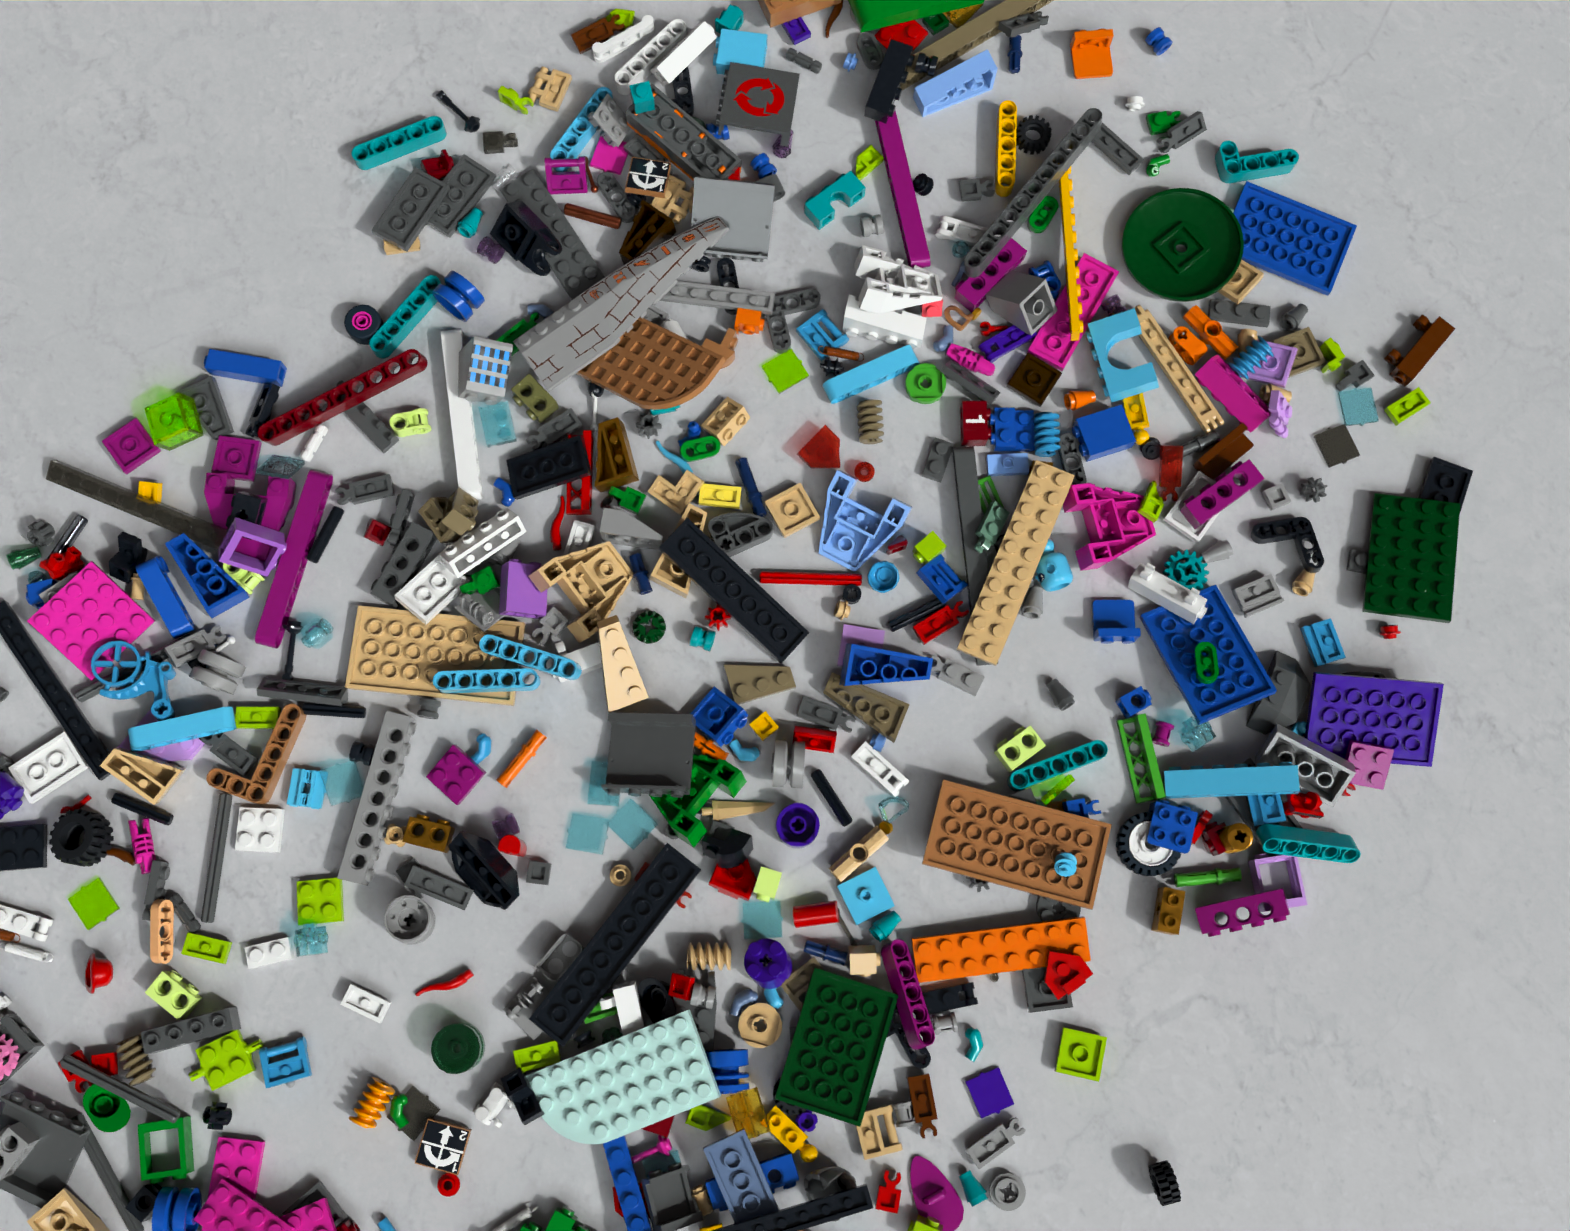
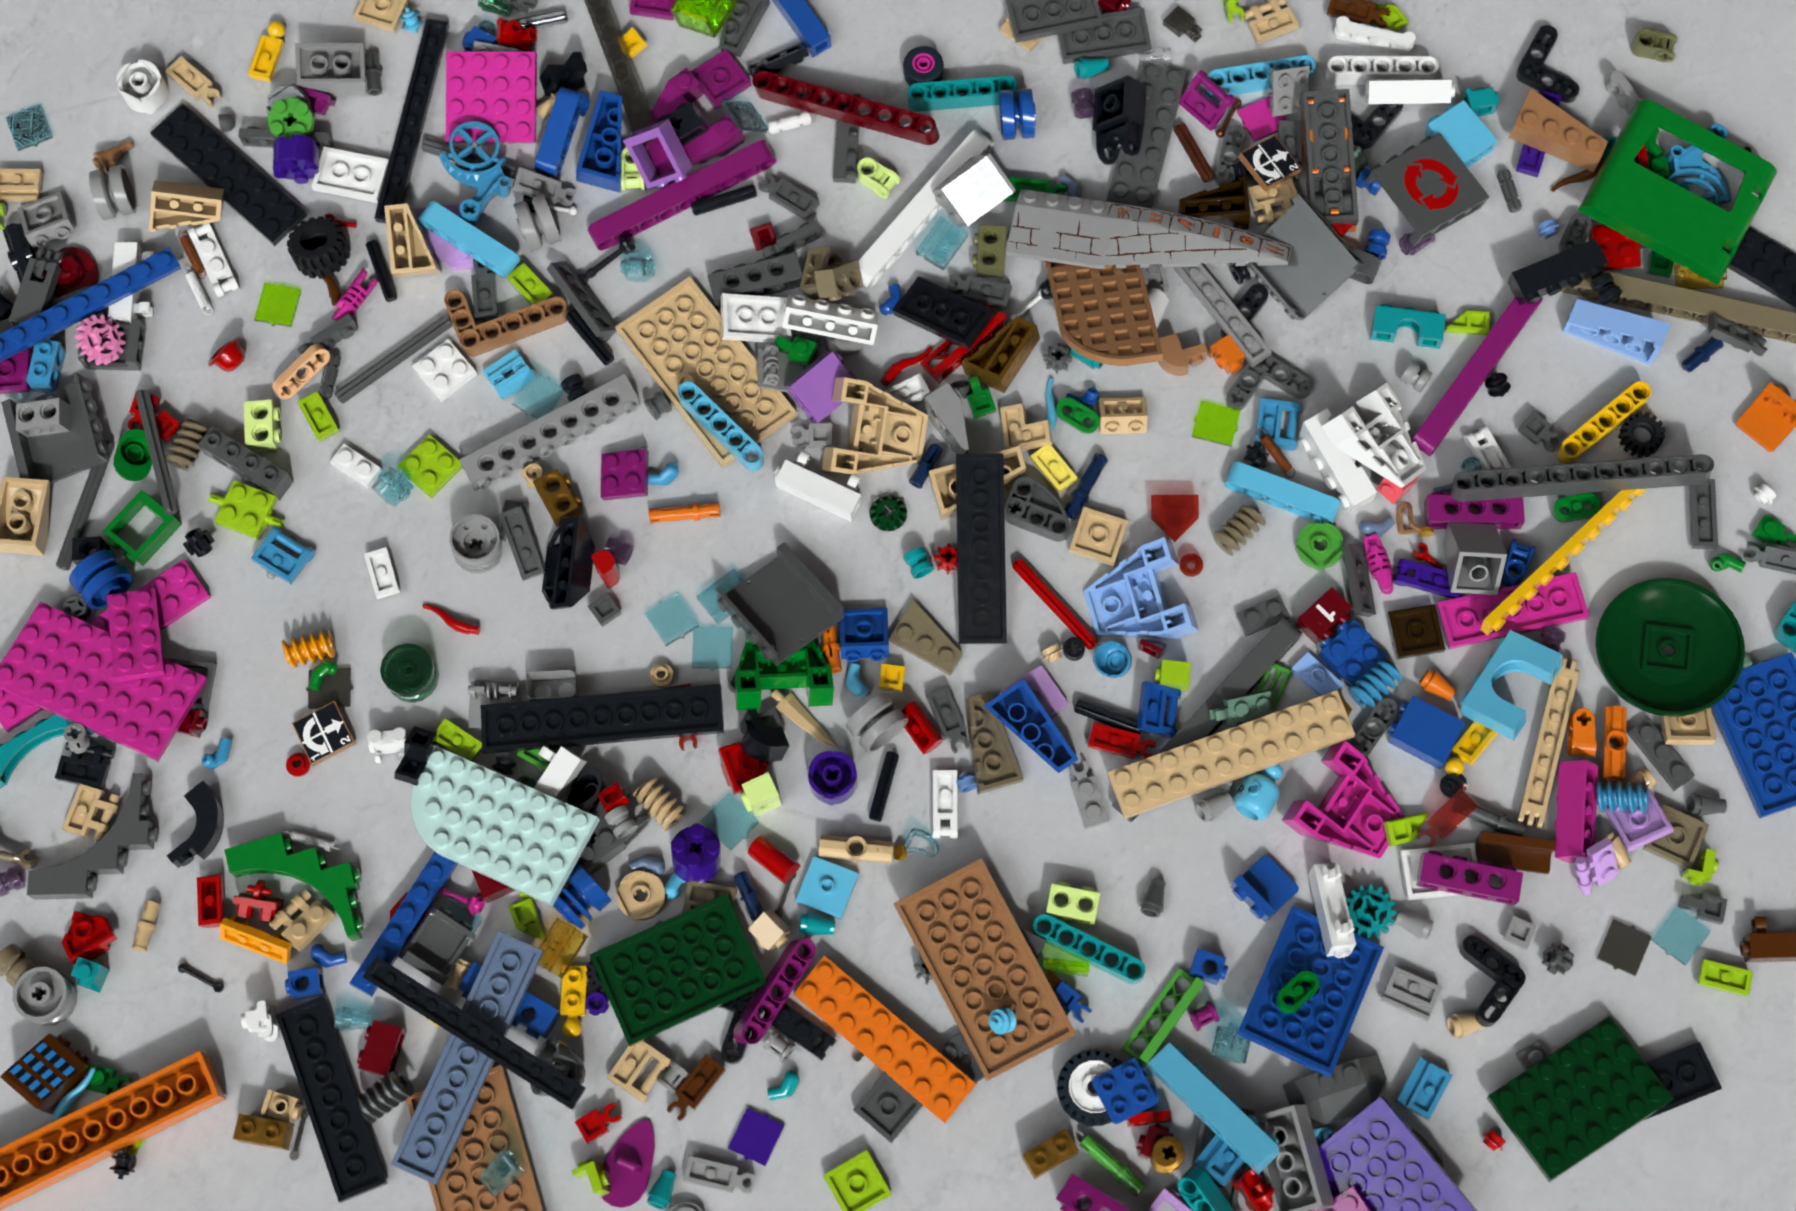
camera: 55 degrees right, 5 degrees down
(521, 653) = (775, 449): medium azure beam -> none
(620, 673) = (828, 517): wedge -> none
(642, 97) = (1326, 92): teal brick -> none
(1065, 973) = (913, 1107): red plate -> none

